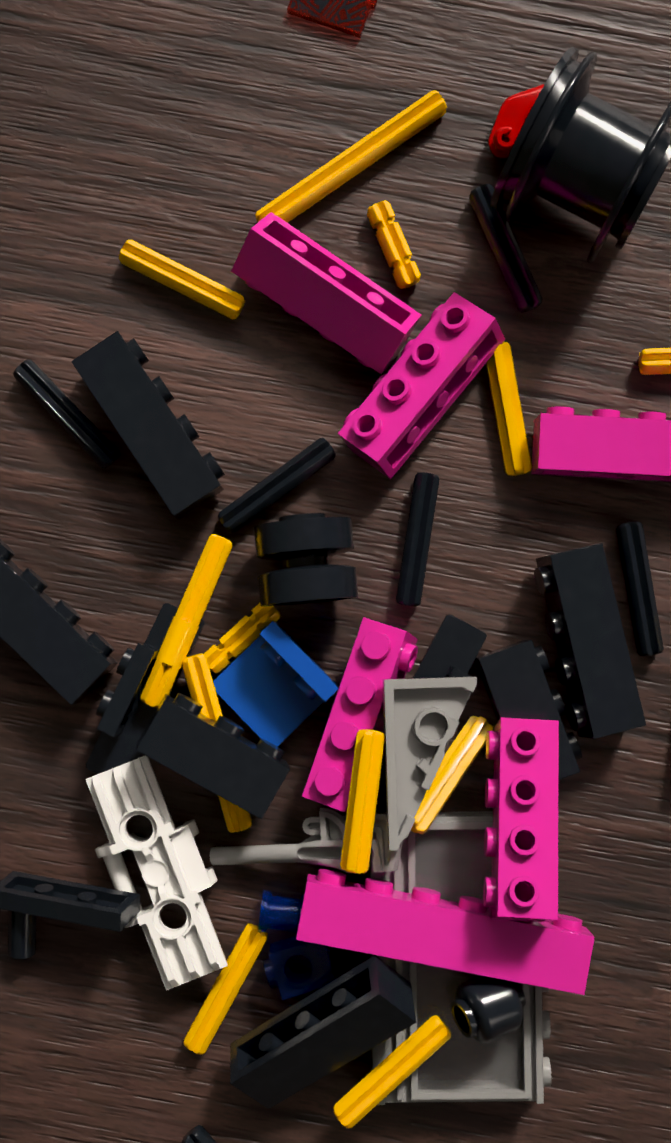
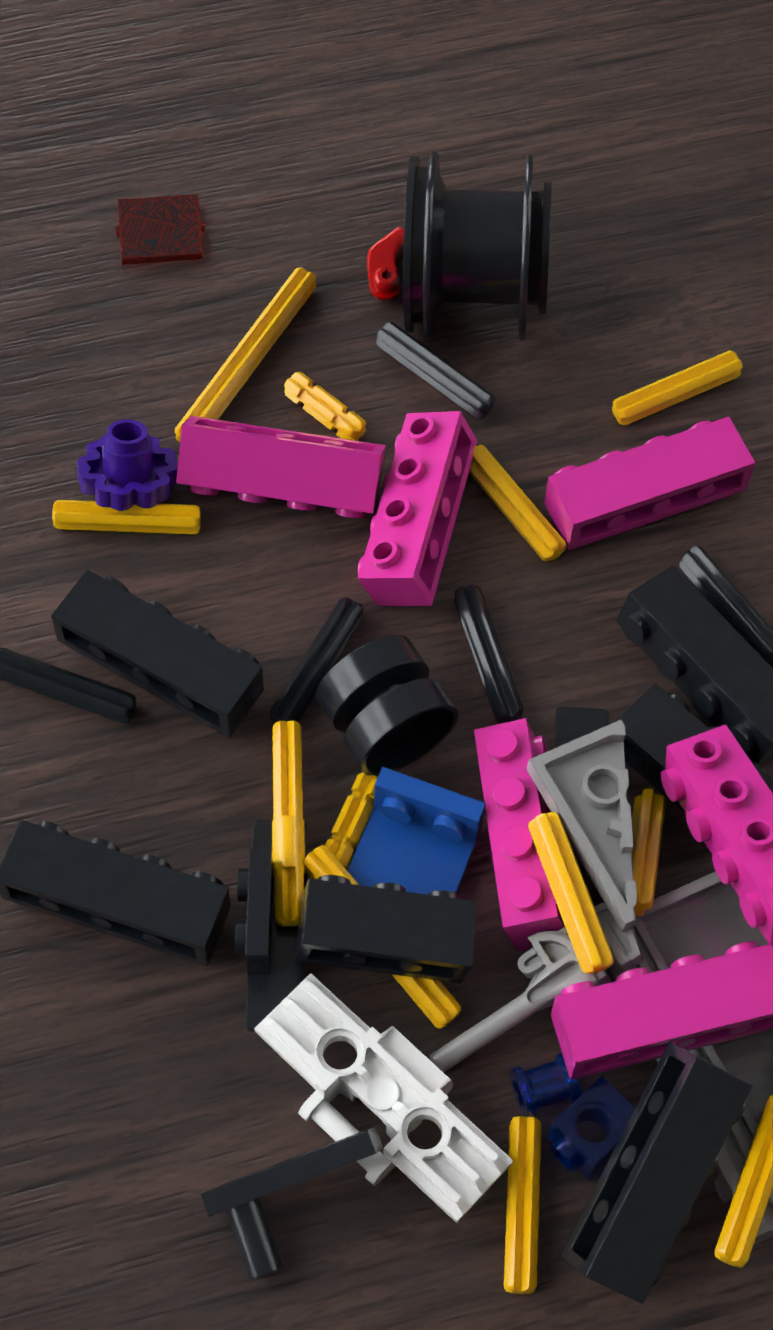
camera: 25 degrees left, 25 degrees down
(197, 238) = (127, 468): none -> dark purple plant

